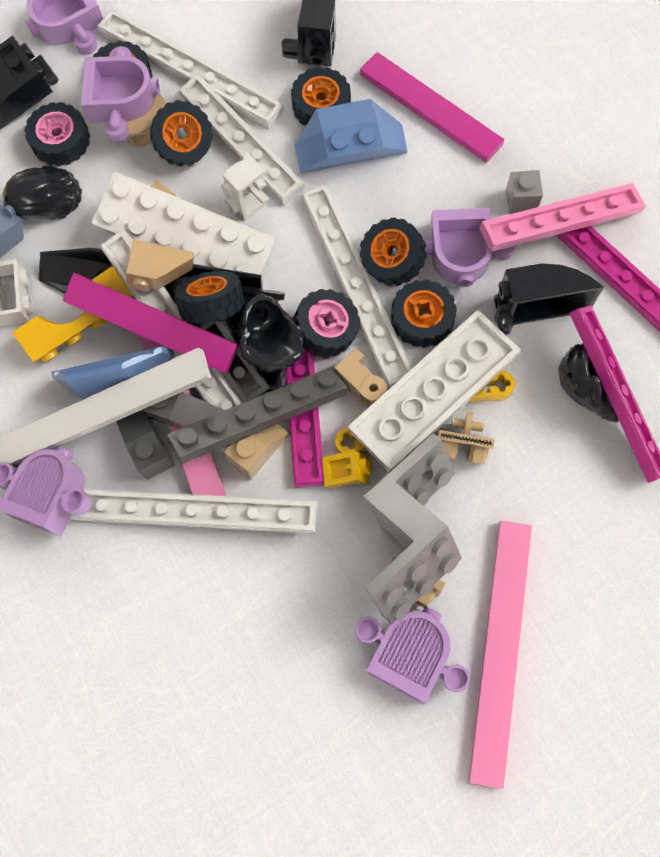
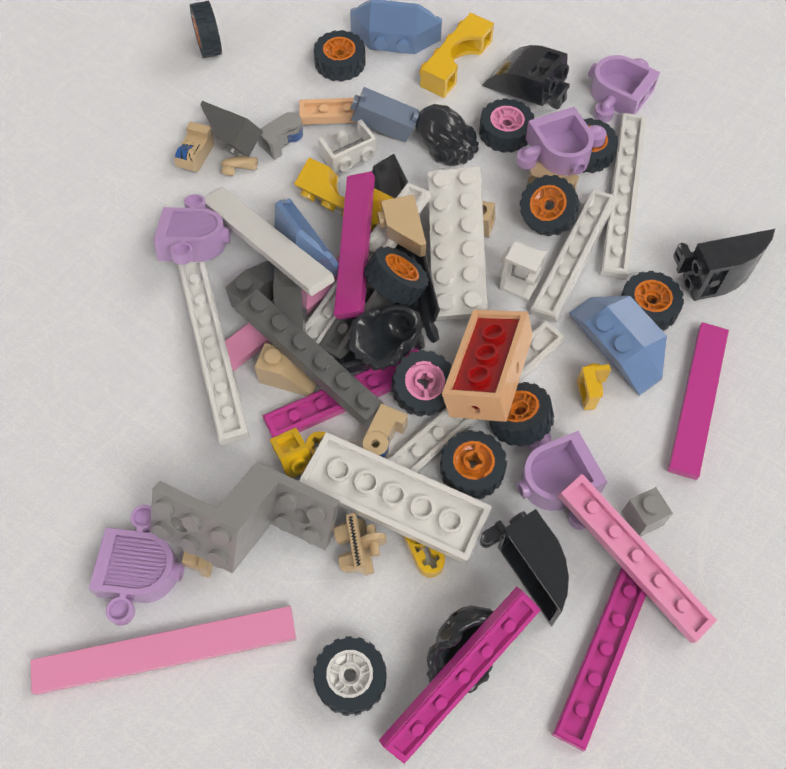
camera: 65 degrees right, 10 degrees down
(338, 254) = (488, 365): none -> brick
(384, 185) = (590, 384): none -> yellow bracket
(590, 474) = (356, 657): none -> black wheel

